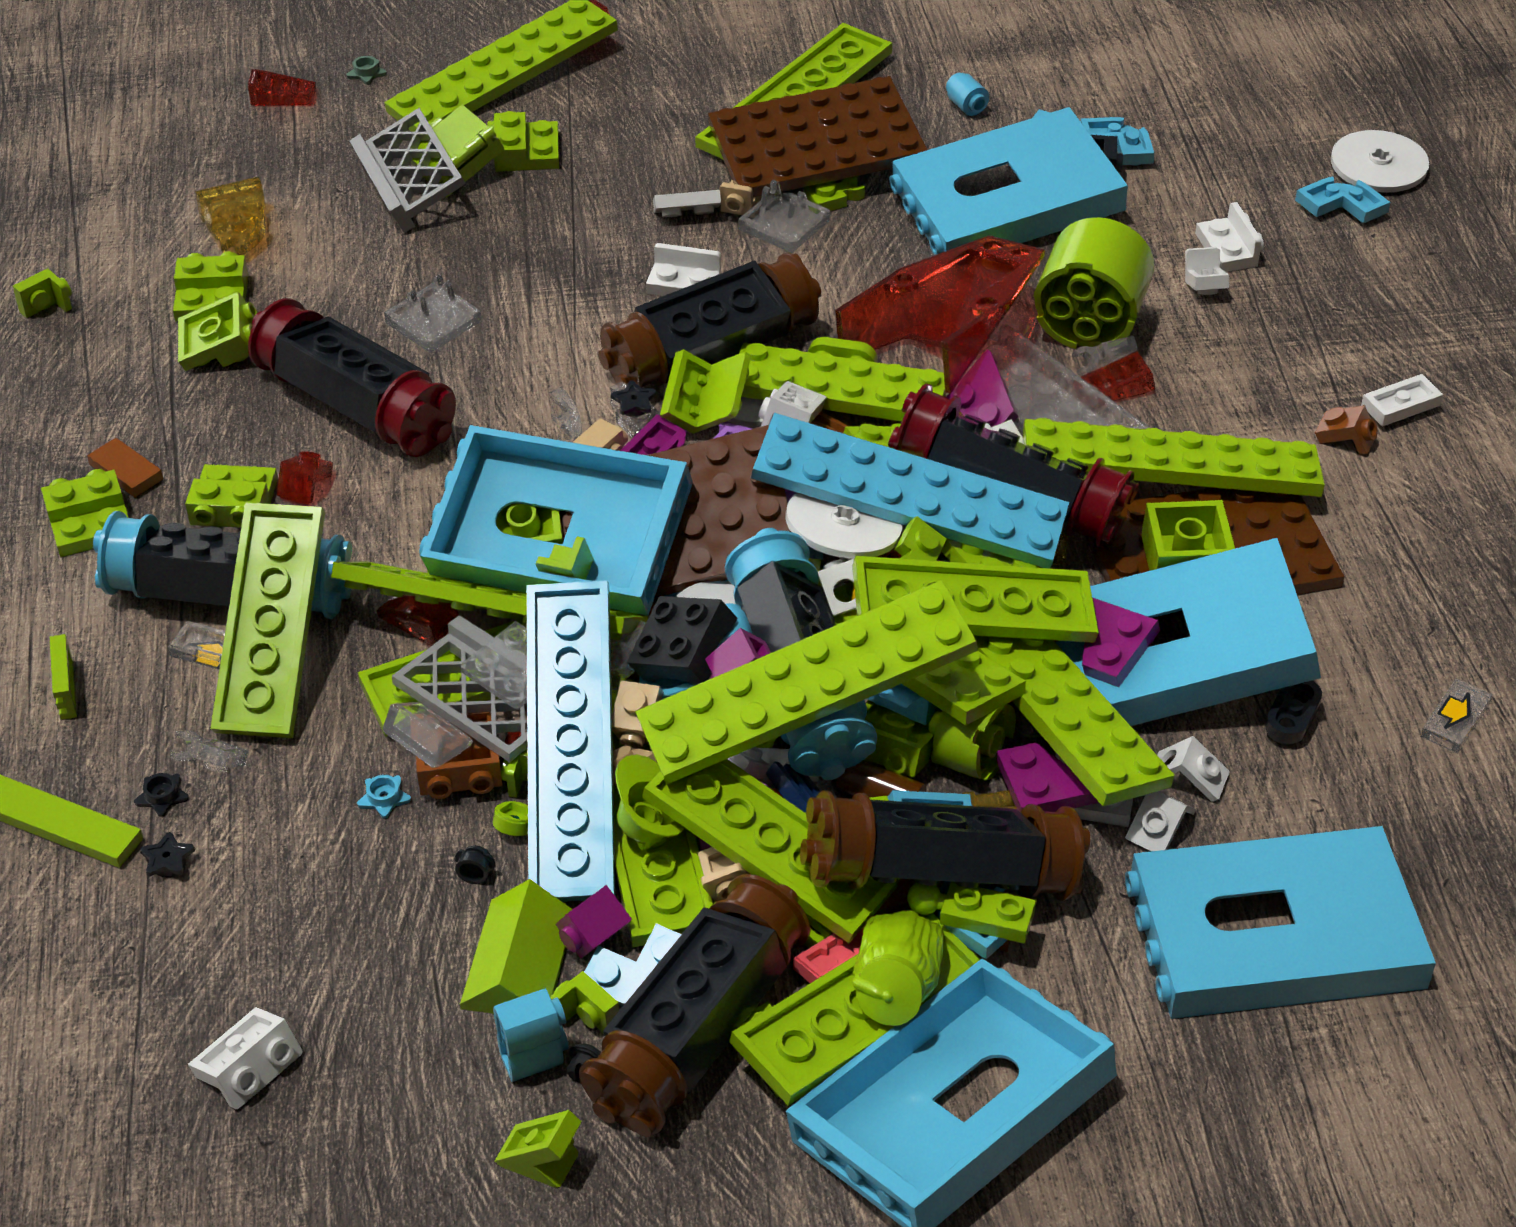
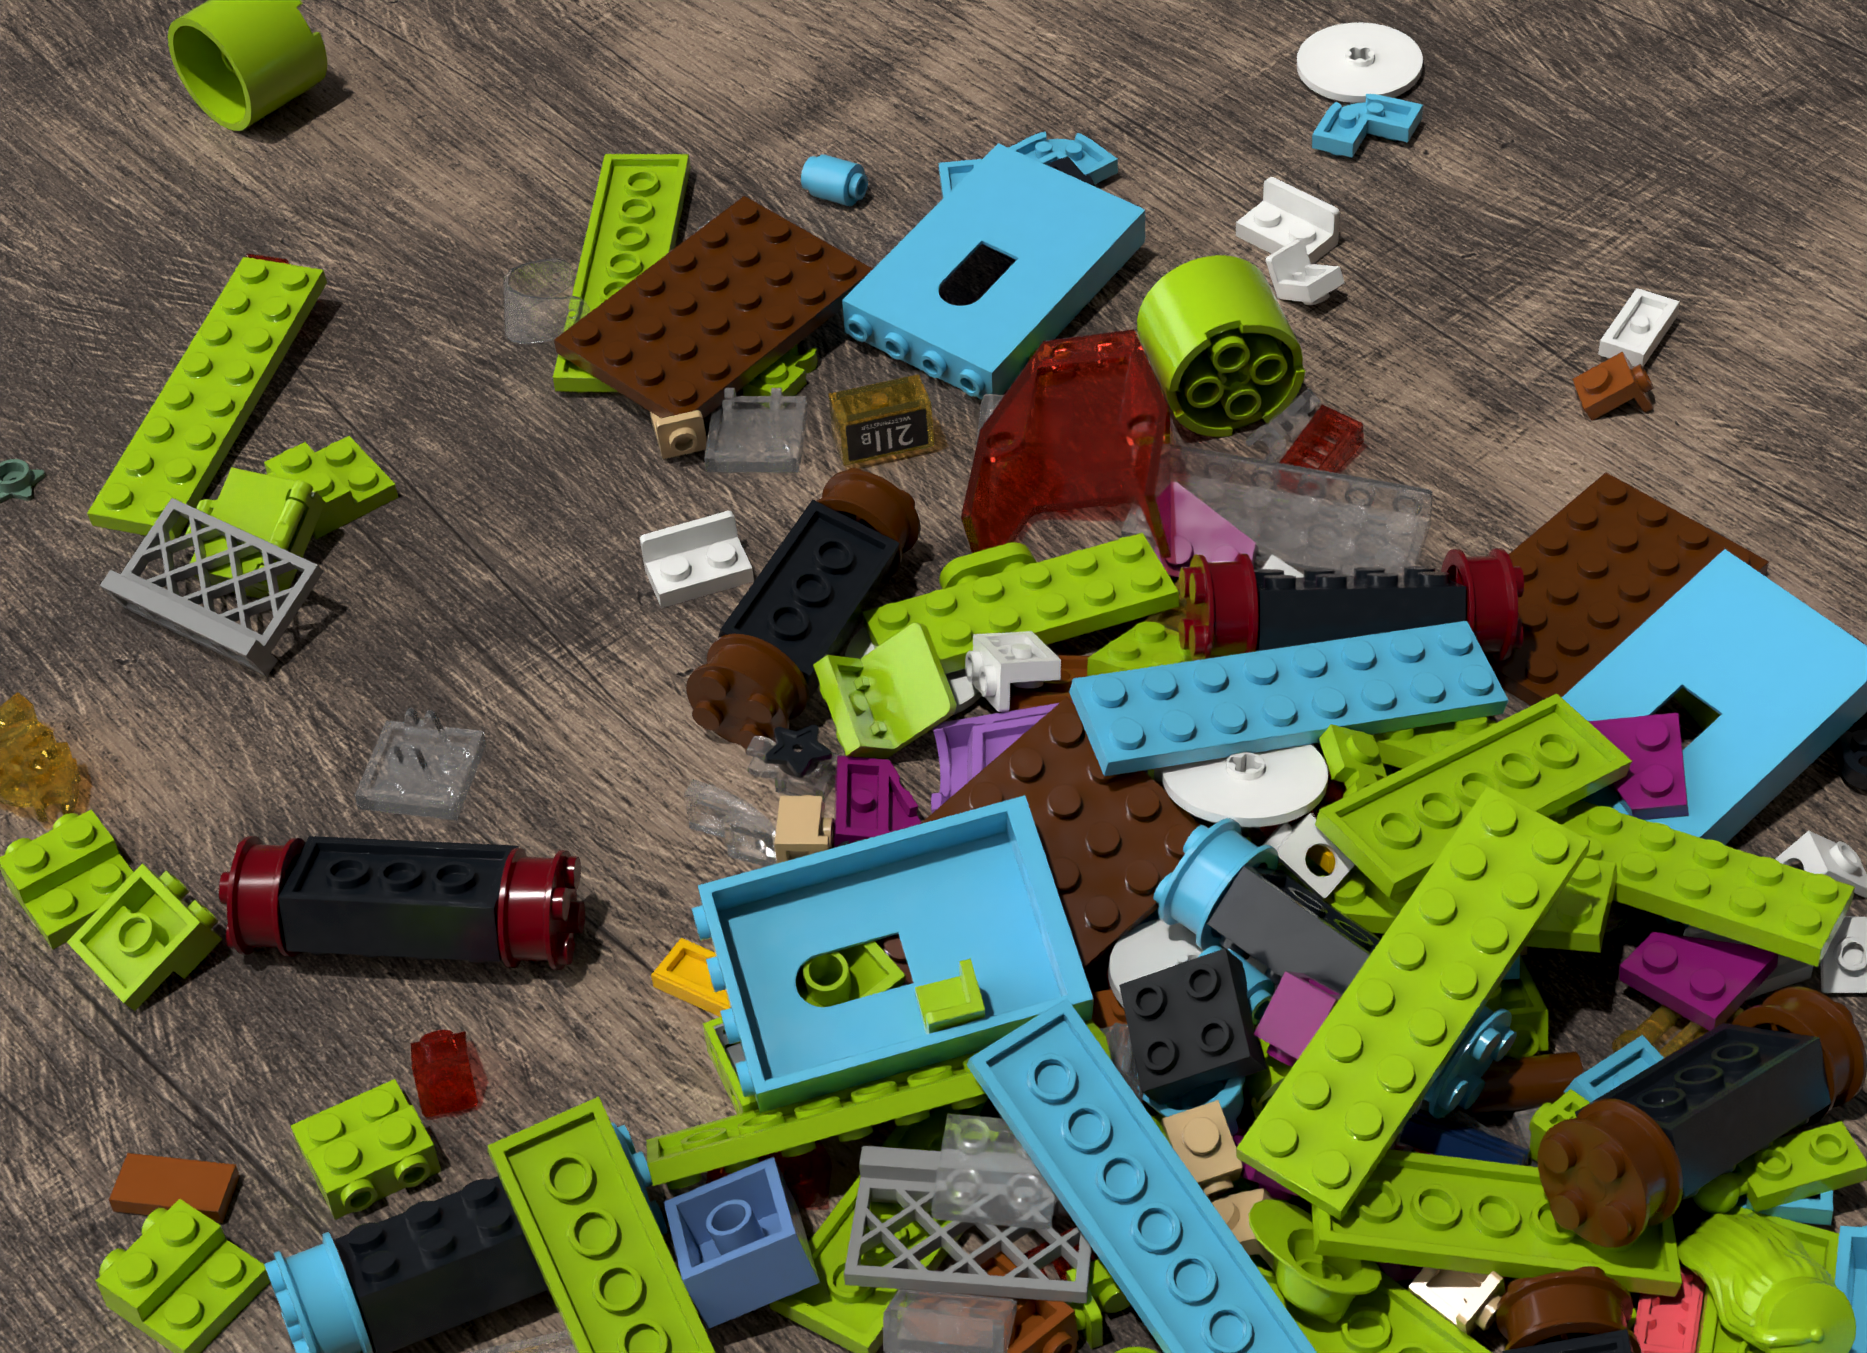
camera: 30 degrees left, 0 degrees up
(357, 633) = (740, 1243): none -> medium blue brick
(701, 202) = (602, 477): white plate -> none
(725, 84) = (530, 309): none -> clear piece
(857, 241) = (881, 419): none -> brick
(974, 746) = (1578, 980): lime brick -> none
(1184, 531) = (1598, 600): lime brick -> none
(1185, 456) = (1491, 506): lime plate -> none

